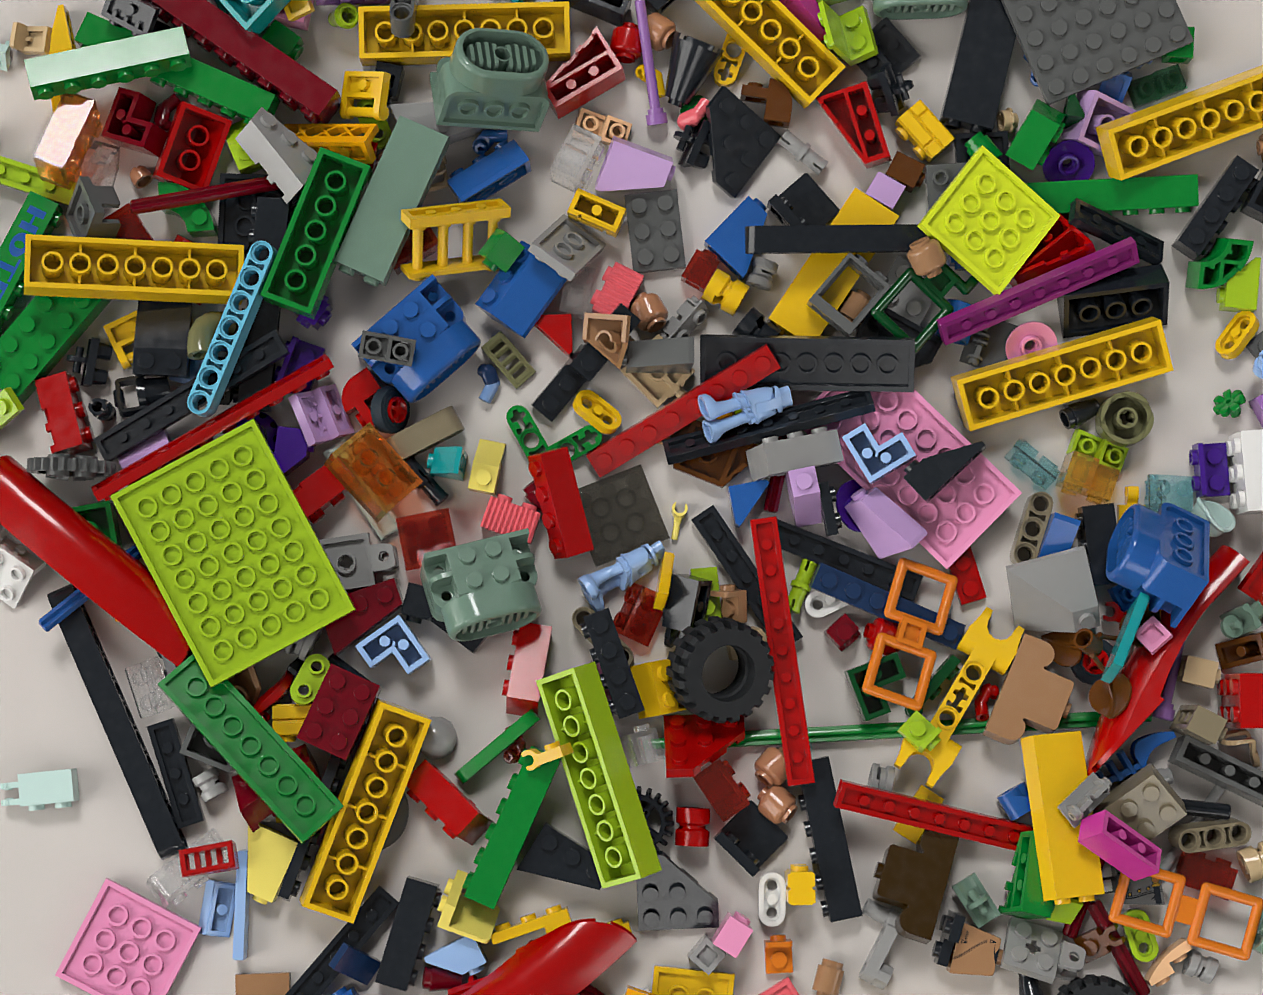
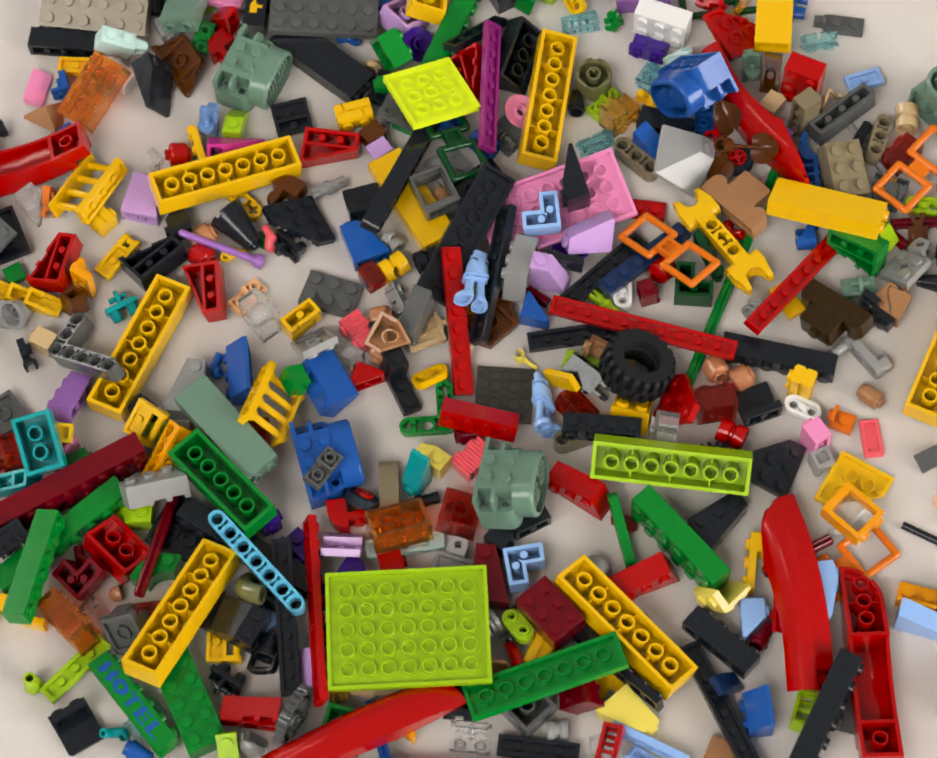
camera: 60 degrees left, 20 degrees down
(27, 433) = (251, 744): none -> light grey hair
(95, 409) = (265, 681): black pin -> none
(344, 16) = (86, 415): lime cone -> none
(490, 380) = (376, 433): arm -> none
(492, 82) = (184, 333): sand green brick -> none
(492, 343) = (361, 424): olive slope -> none
(552, 752) = (642, 482): yellow plate -> none
(633, 167) = (284, 285): lavender slope -> none
(848, 34) = (270, 126): lime bracket -> none
(893, 87) = (308, 119): black hips -> none
(920, 732) = (735, 265): lime bracket -> none
(926, 257) = (435, 133): medium nougat head -> none
(1072, 111) = (386, 24): dark green slope -> none
(1085, 798) = (822, 187): light grey hinge -> none
(1119, 845) = (860, 179): dark pink brick -> none
(1125, 638) = (731, 120): teal tile -> none
(1153, 635) = (737, 107): bright pink plate -> none
(1221, 365) = (586, 28): none -> clear light blue slope

